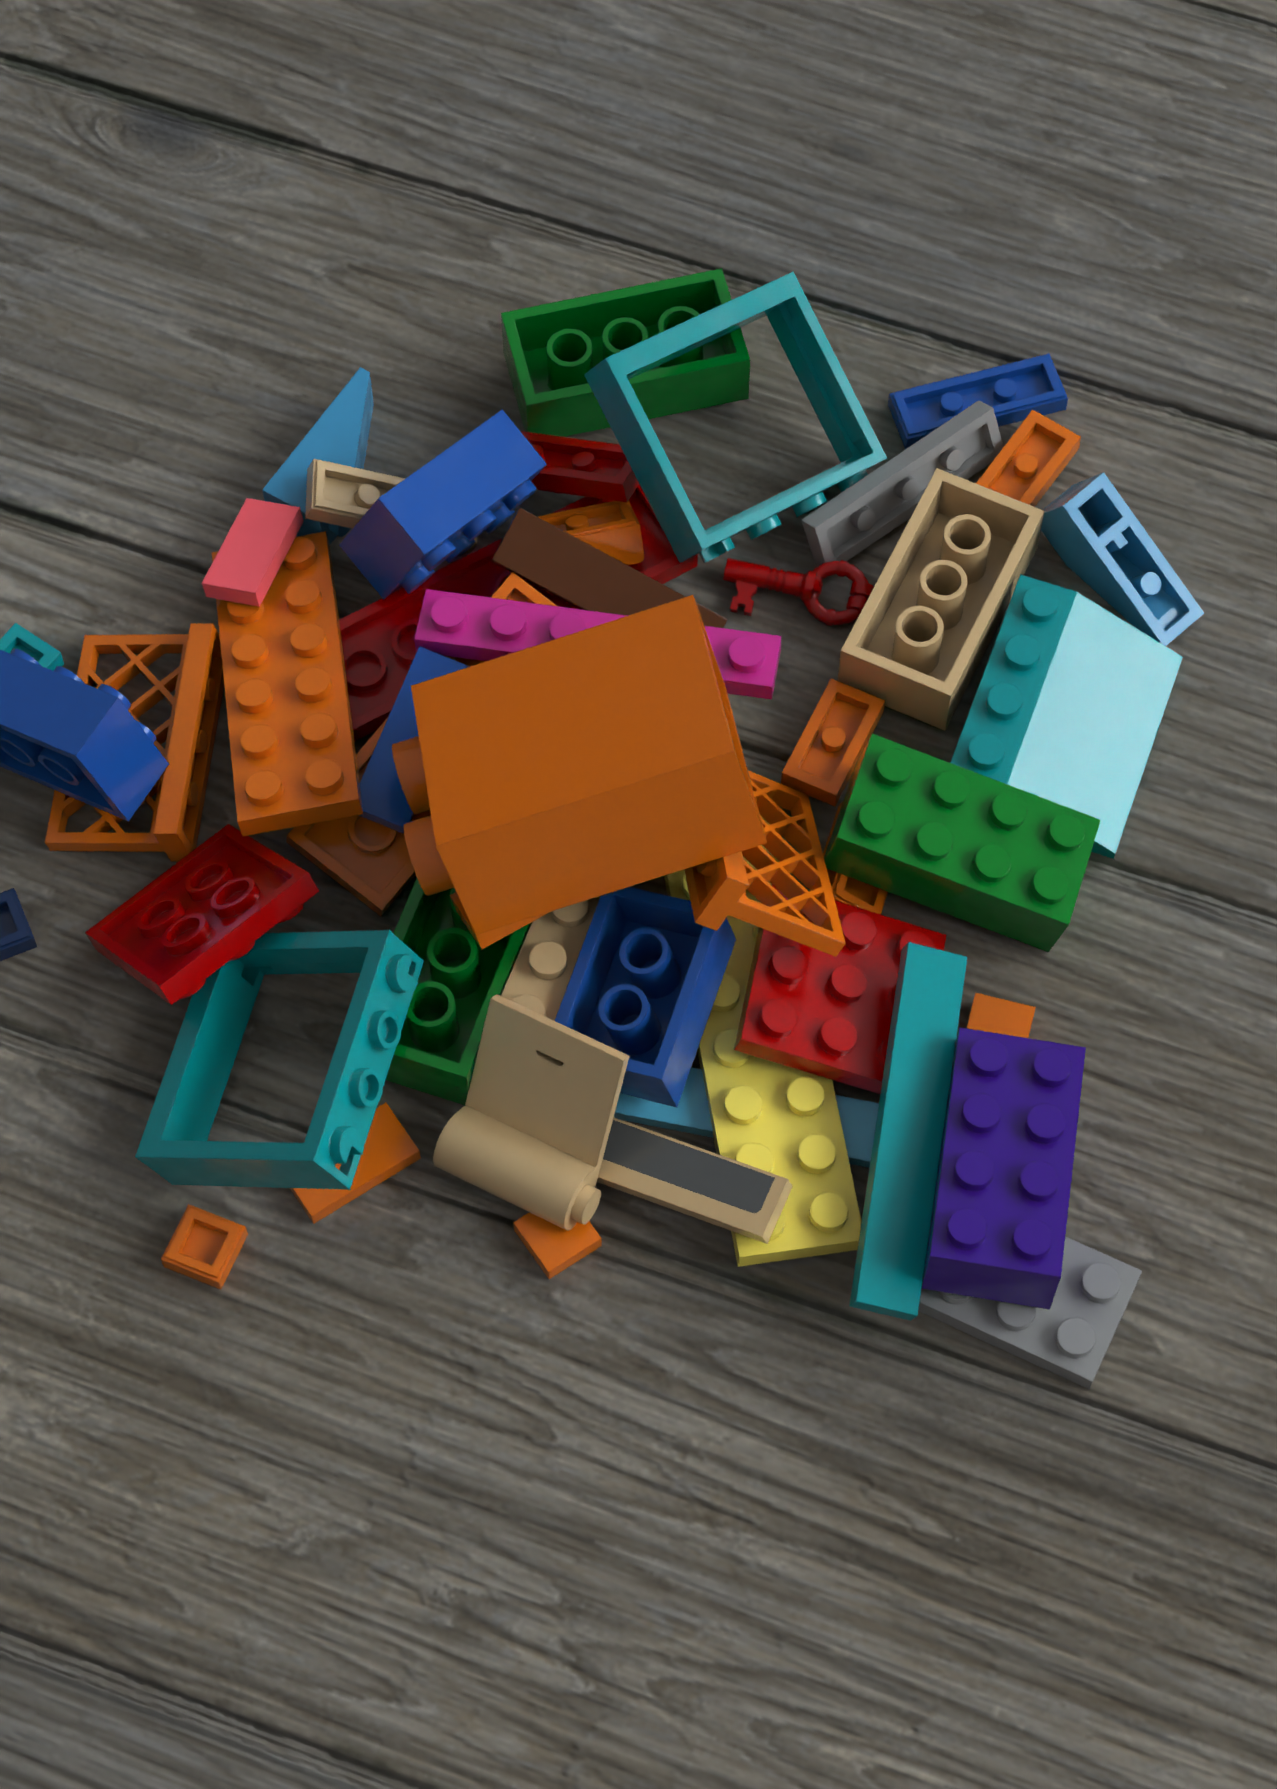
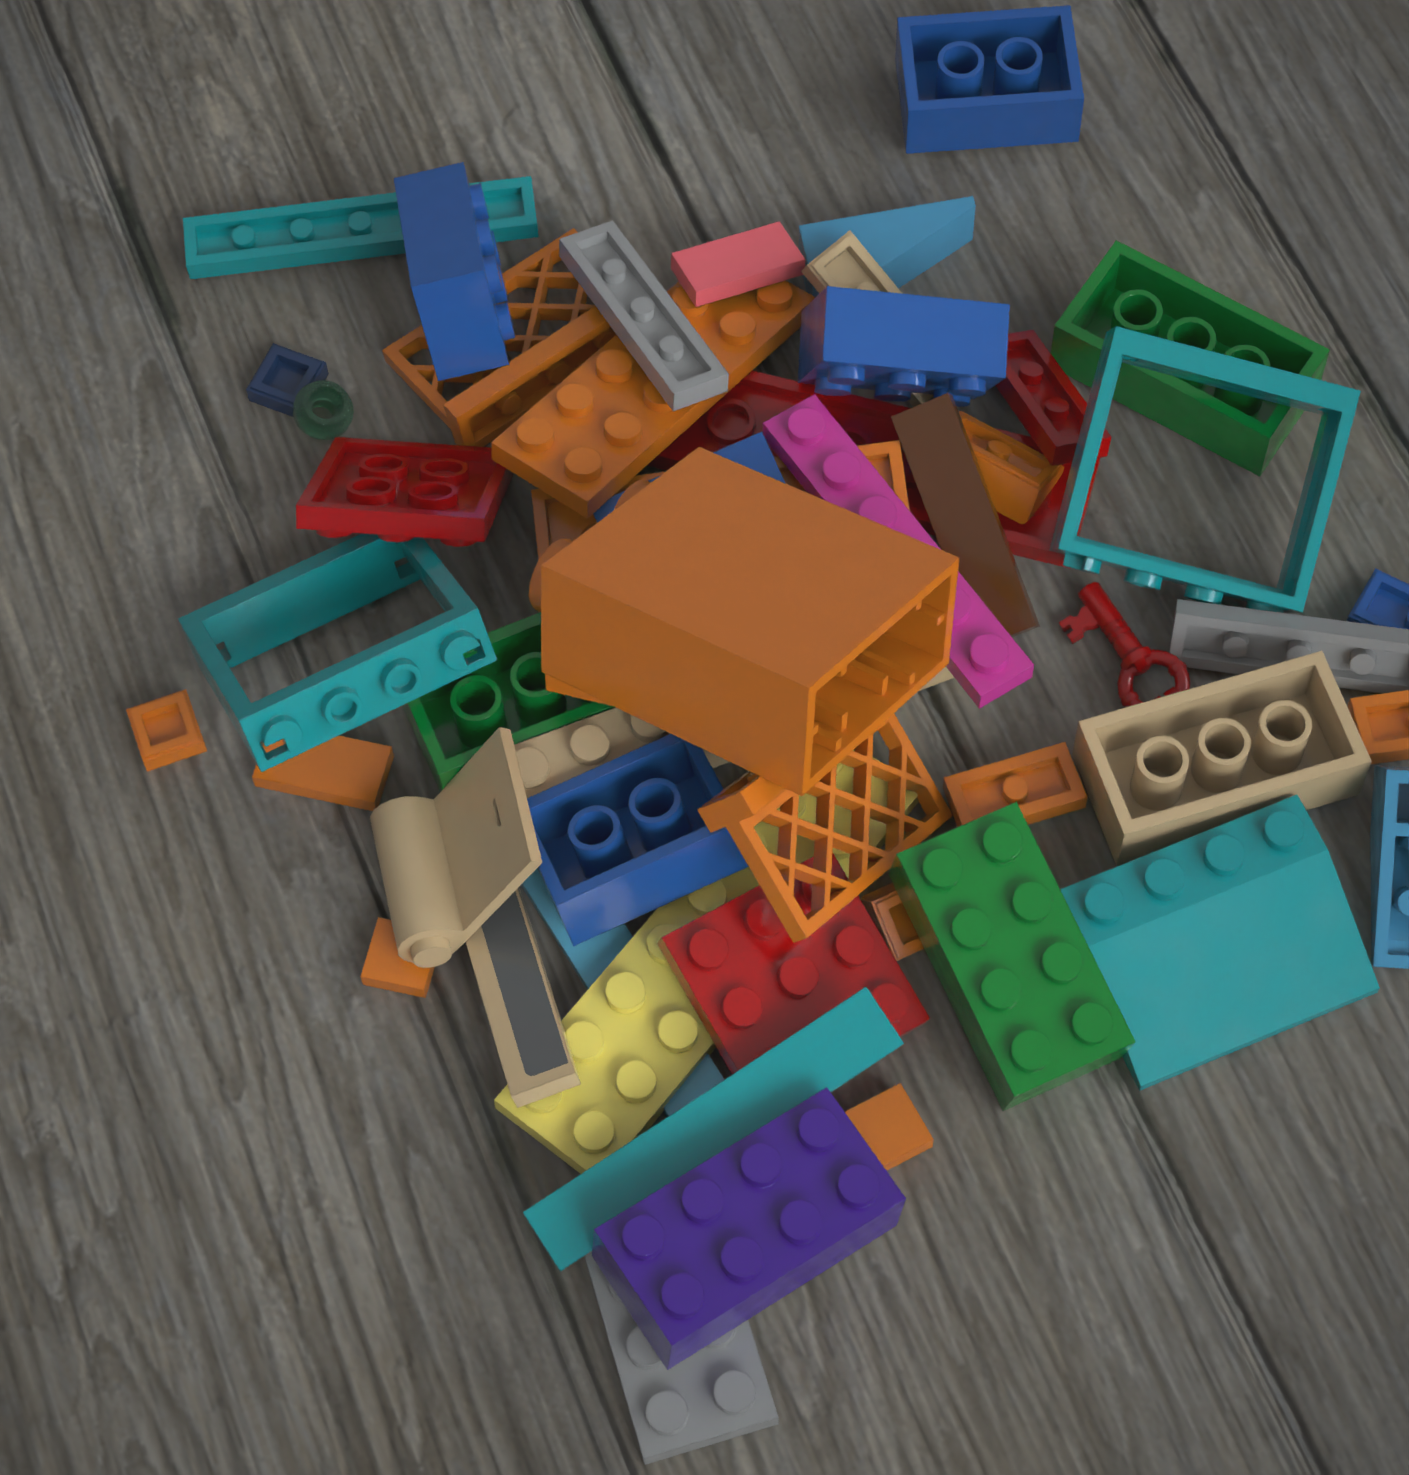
camera: 50 degrees right, 0 degrees up
(55, 908) = (326, 395): none -> clear green plate
(239, 640) = (643, 315): none -> light grey plate
(272, 279) = (988, 79): none -> blue brick

